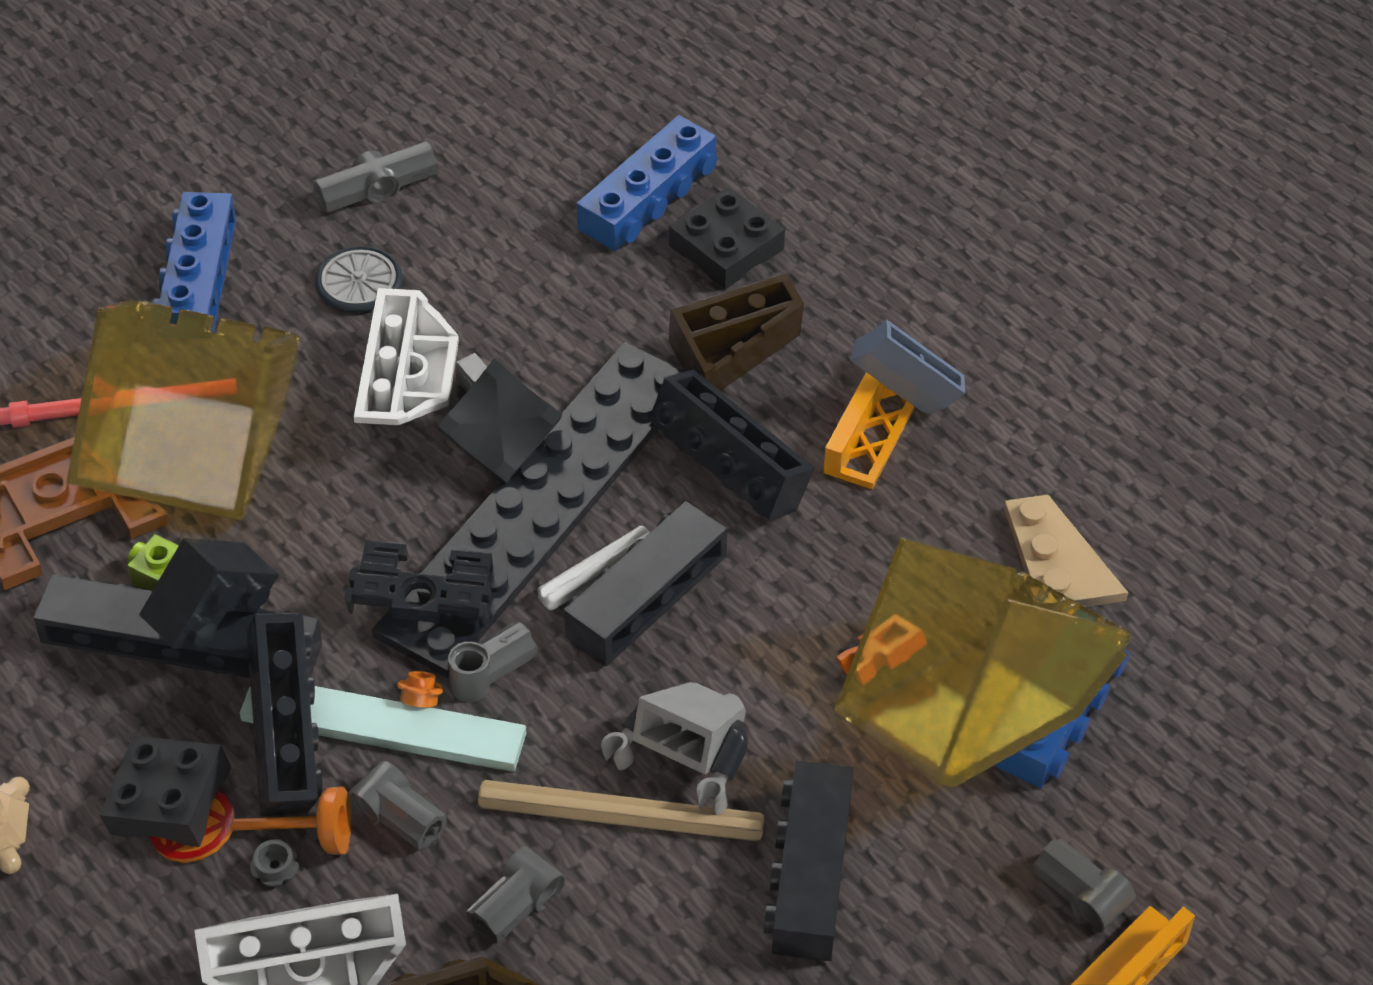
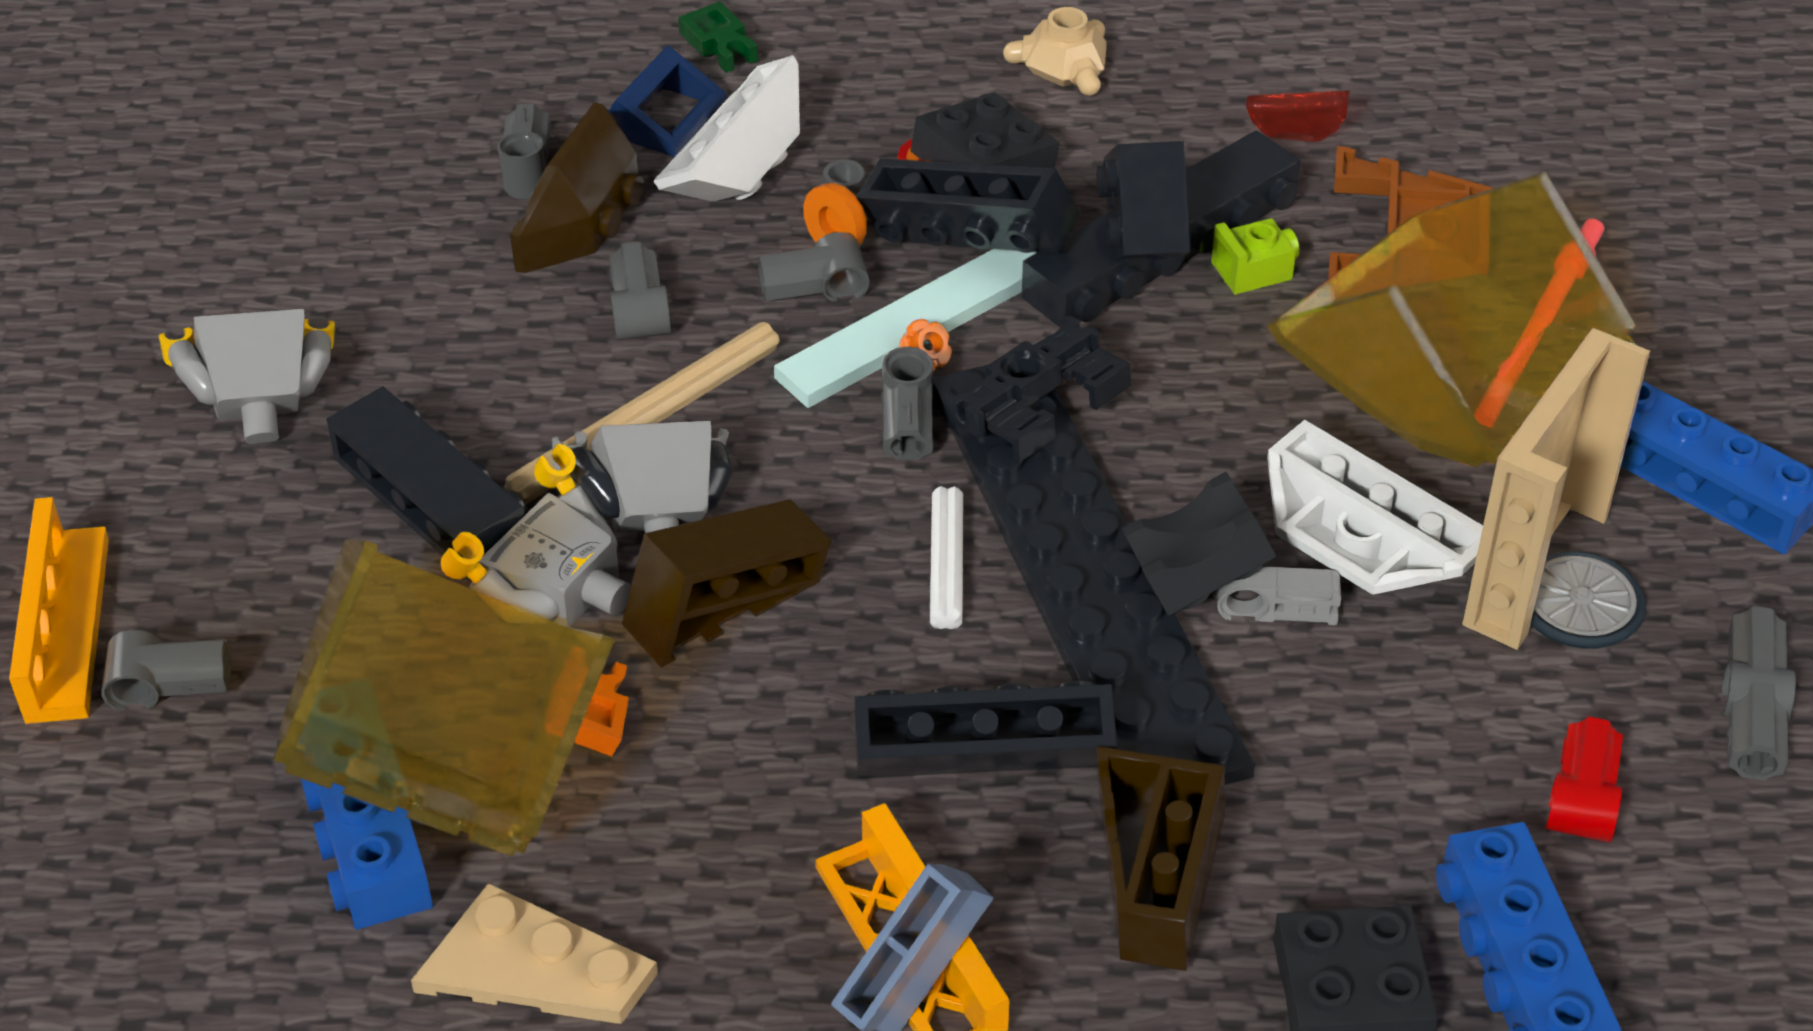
camera: 130 degrees right, 5 degrees down
(331, 257) = (1554, 463): none -> tan panel
(518, 208) = (1585, 790): none -> red piece
(645, 583) = (873, 560): black brick -> none
(733, 641) = (718, 568): none -> dark brown wedge
(805, 732) = (553, 558): none -> light grey torso

